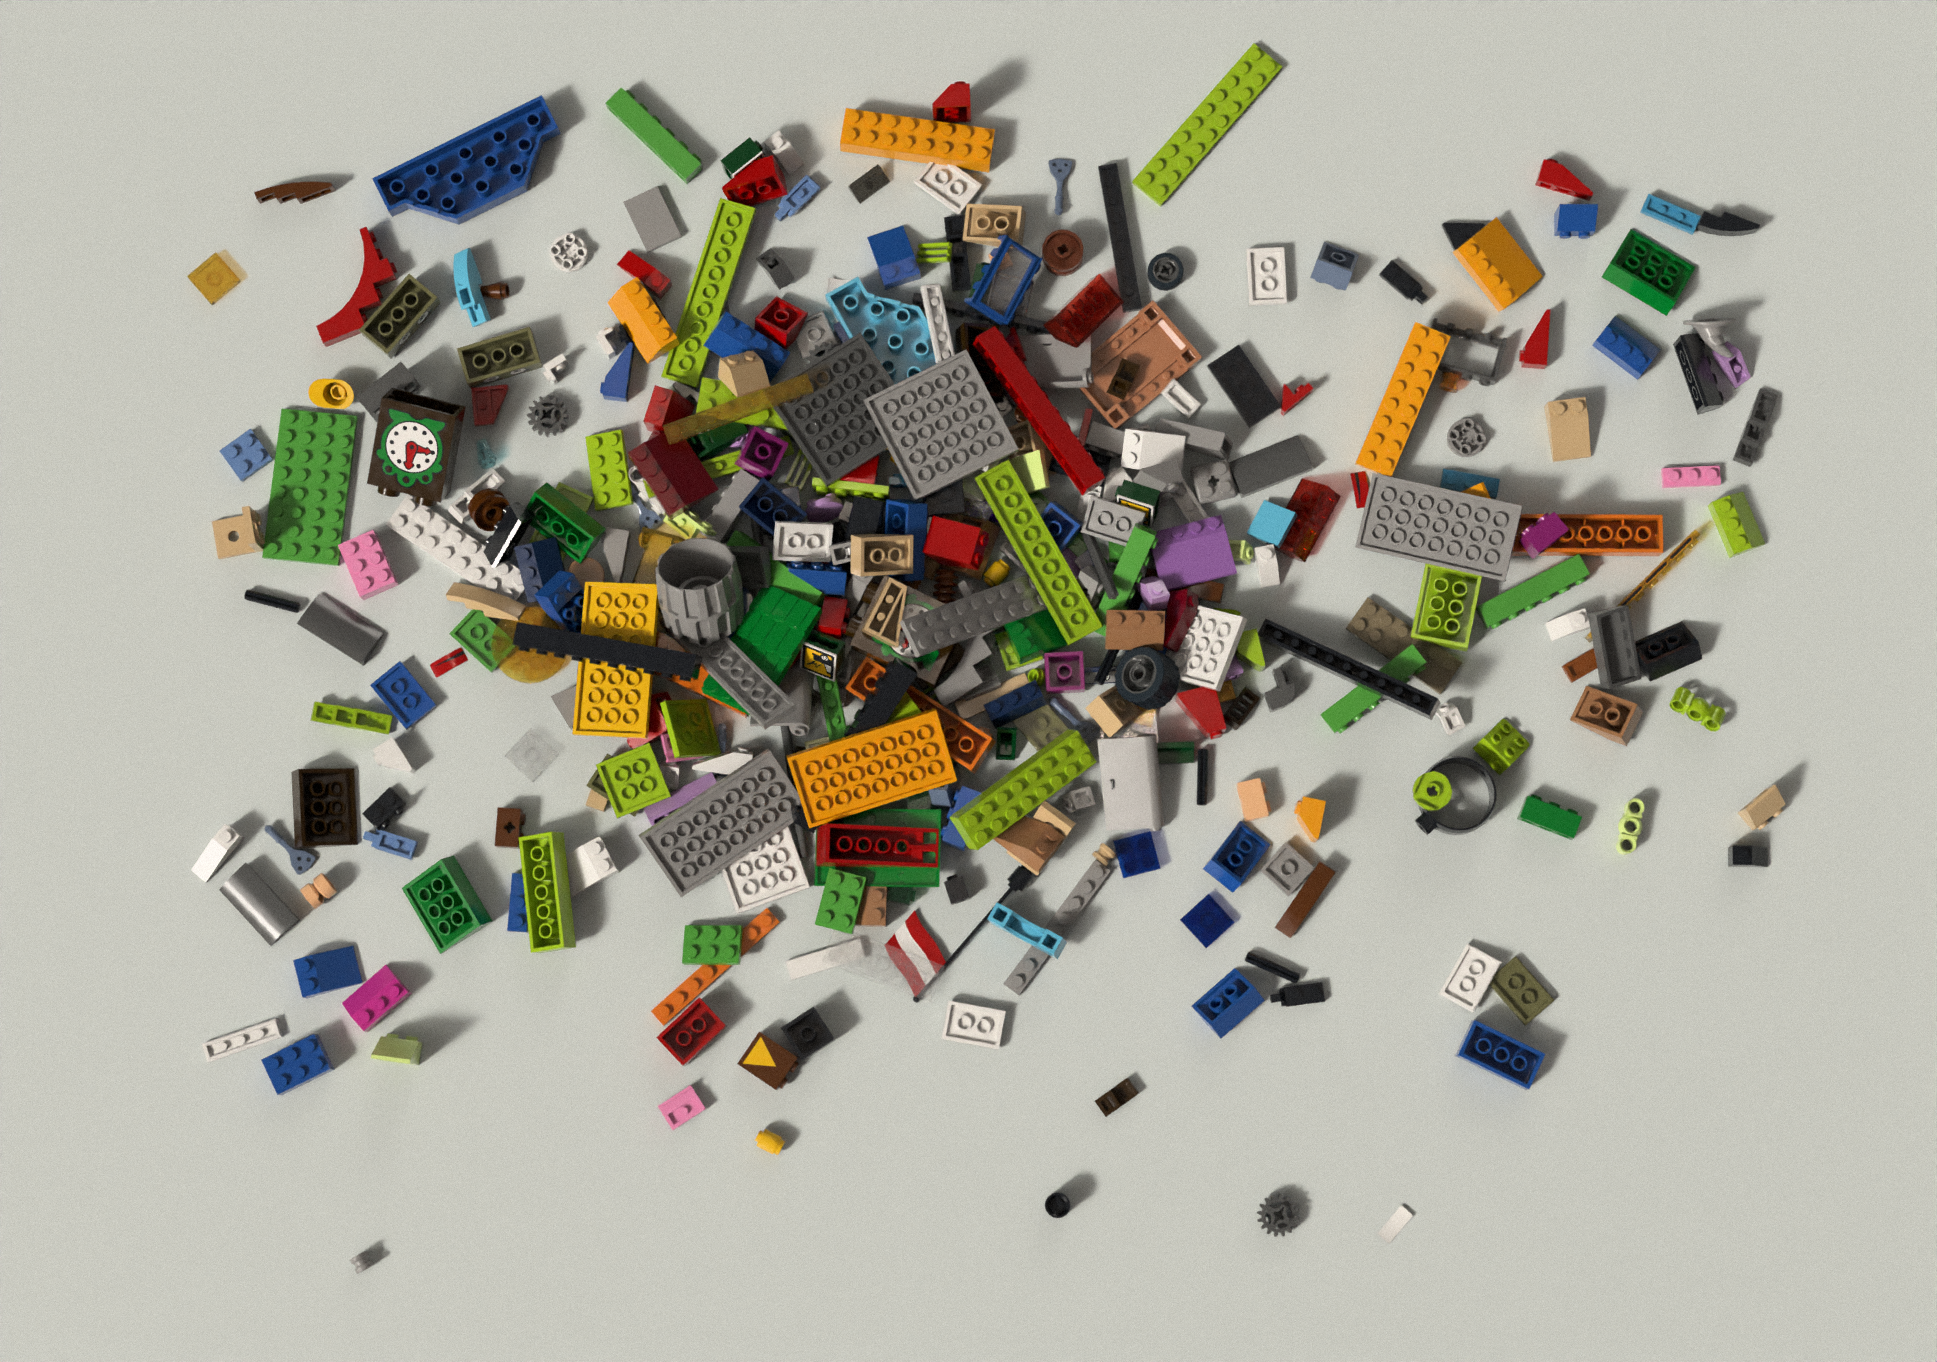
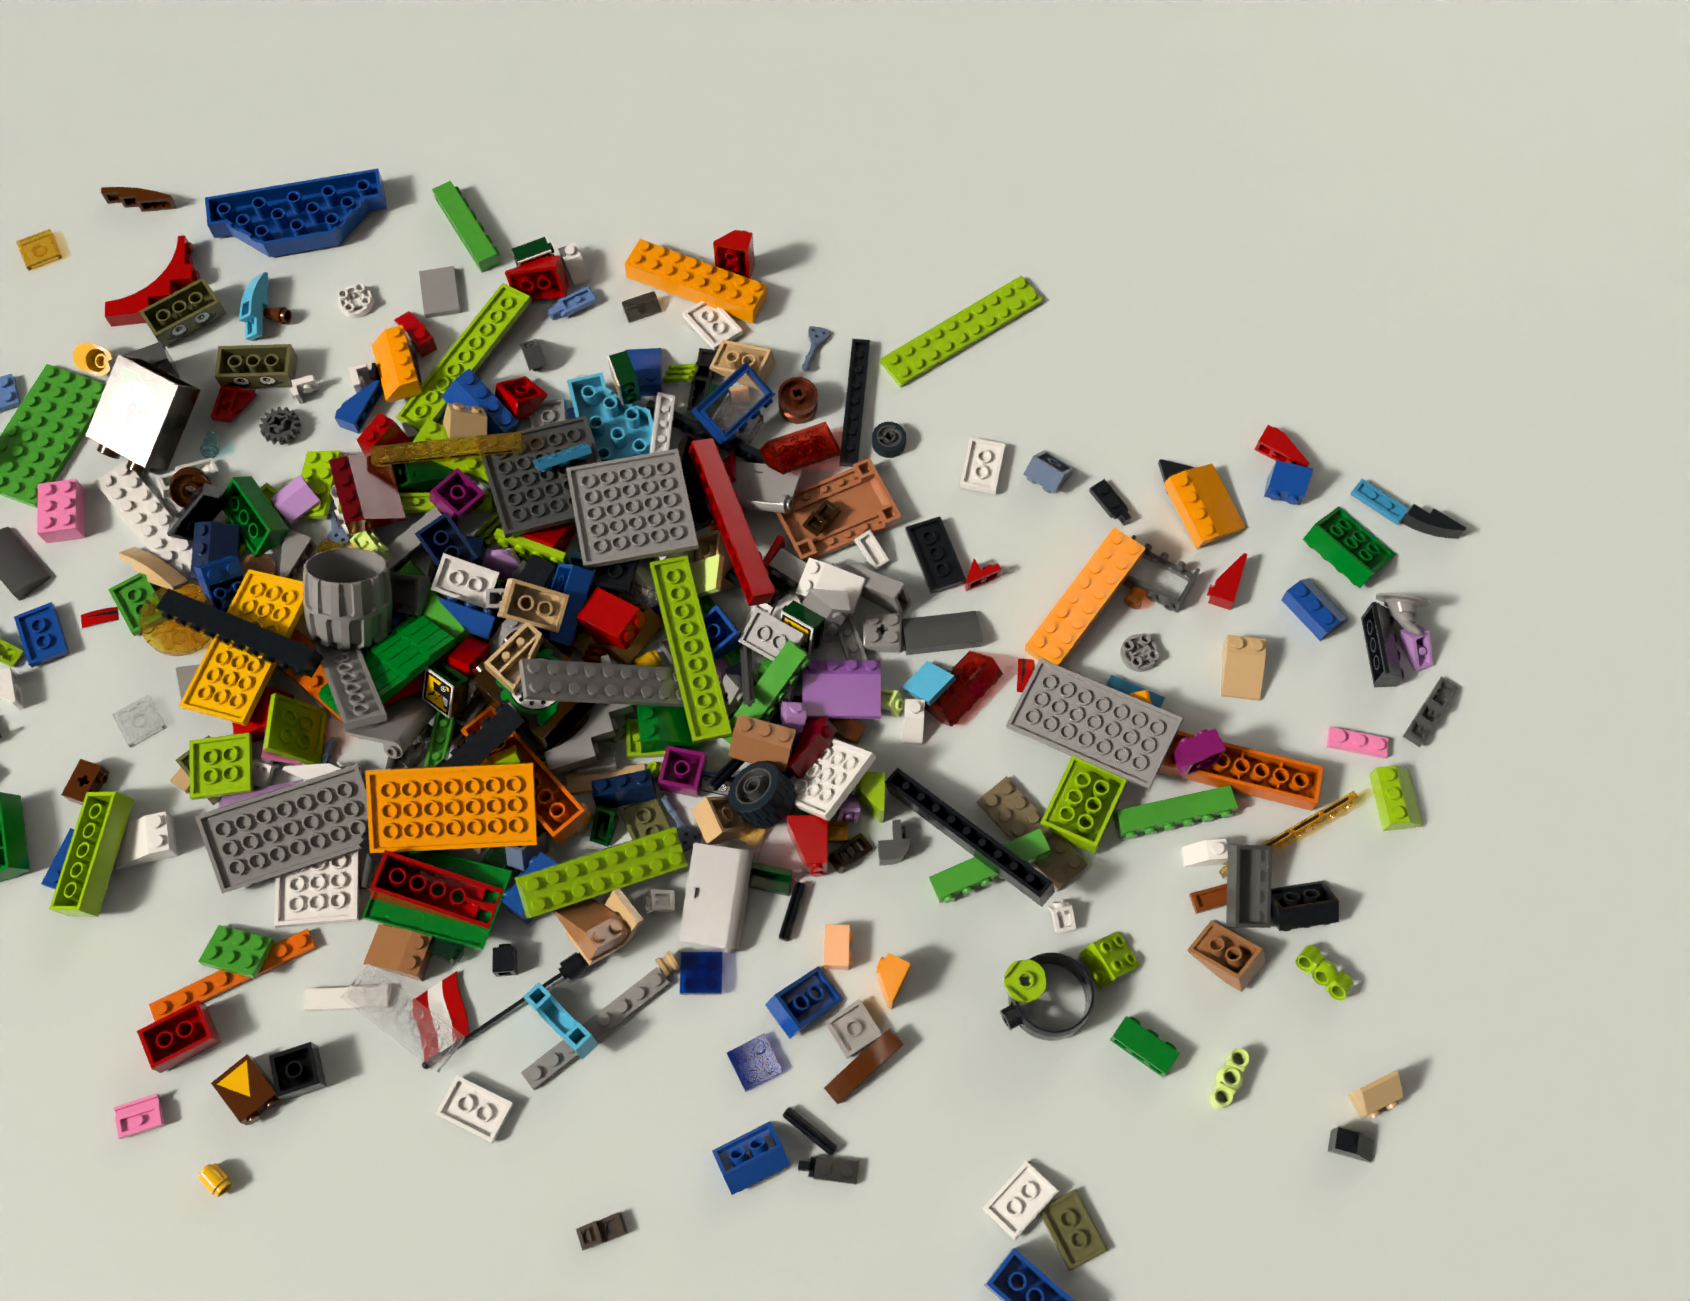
camera: 10 degrees right, 15 degrees down
(597, 494) = (295, 499): none -> lavender slope
(841, 901) = (380, 939): bright green plate -> none
(855, 388) = (562, 457): none -> dark azure plate
(887, 283) = (624, 377): none -> dark green piece

